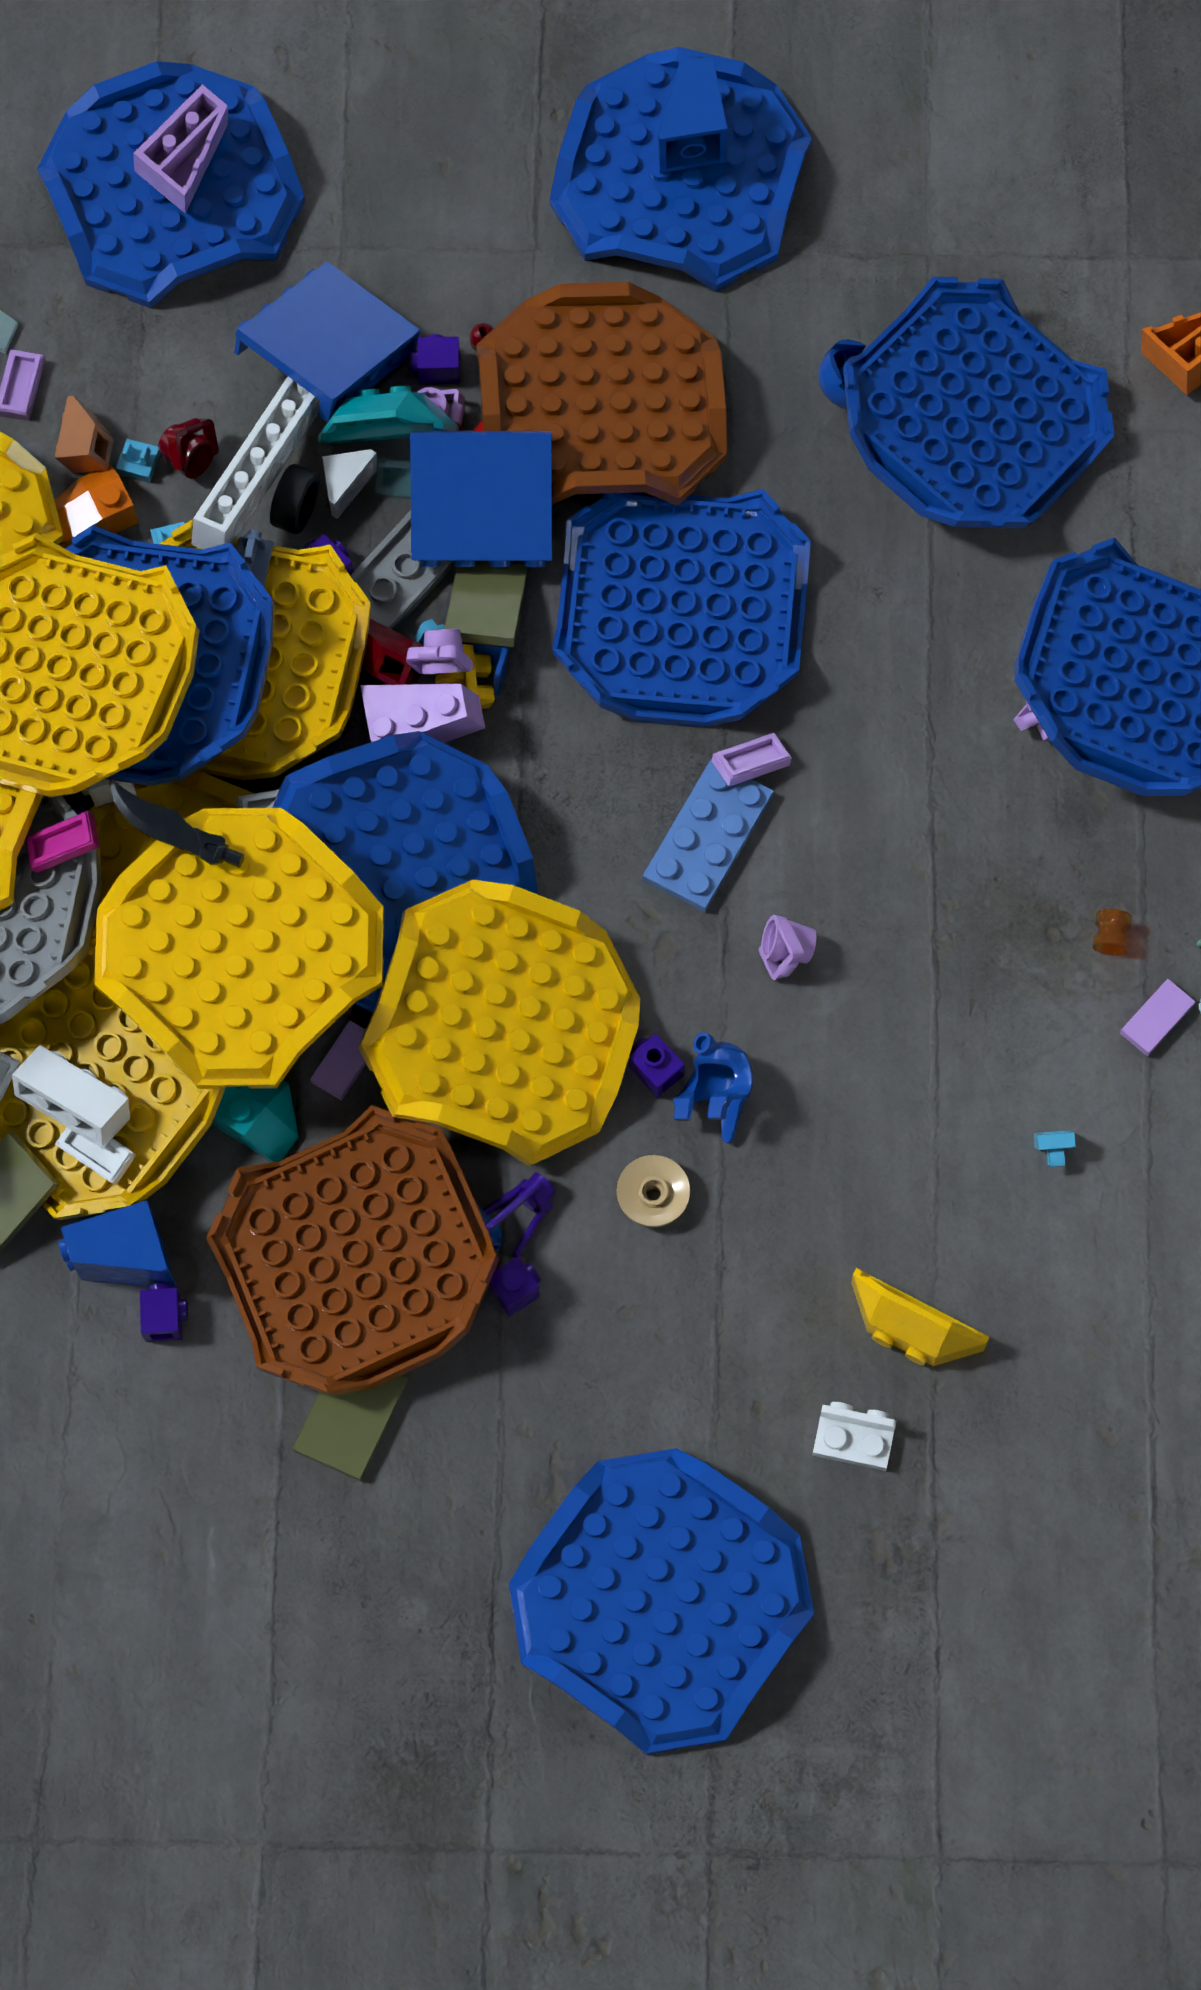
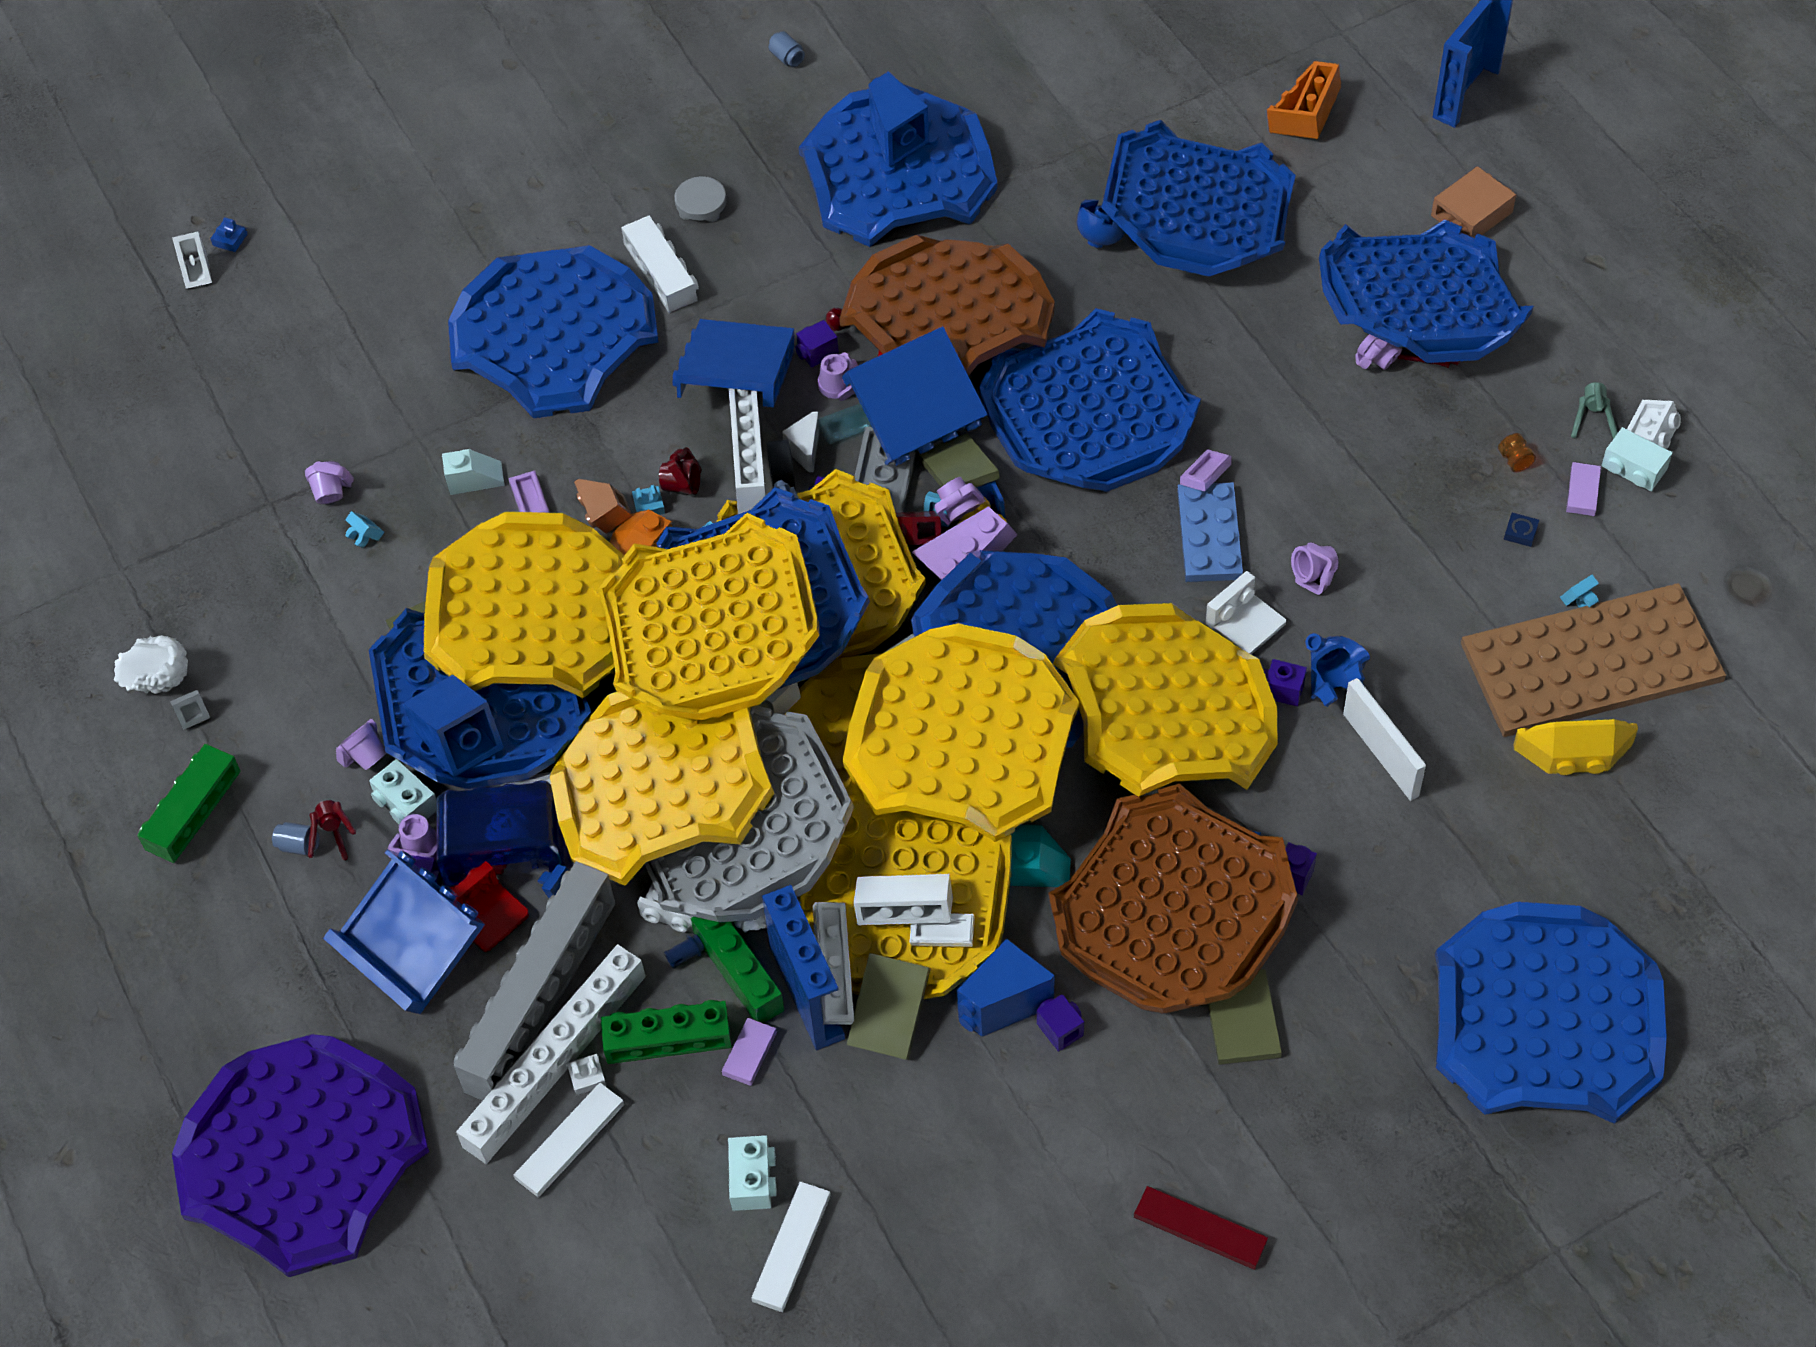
camera: 30 degrees left, 15 degrees down
(62, 842) = (786, 732): dark pink tile -> none
(154, 1613) = (1200, 1227): none -> dark red tile
(172, 829) = (868, 672): black sword -> none
(183, 147) = (556, 292): lavender wedge -> none
(334, 160) = (660, 264): none -> white brick
(341, 1063) = (1069, 794): lavender tile -> none
(384, 417) = (808, 387): teal wedge -> none
(434, 96) = (700, 199): none -> light grey tile
(532, 1194) = (1262, 806): dark purple plant -> none
(648, 1174) = (1343, 749): tan dish -> none
(668, 962) = (1243, 616): none -> white bracket
(706, 1196) = (1384, 739): none -> white tile
(854, 1436) = (1593, 838): white bracket -> none
(1012, 1228) = (1592, 659): none -> medium nougat plate
(1050, 1027) = (1521, 529): none -> dark blue tile

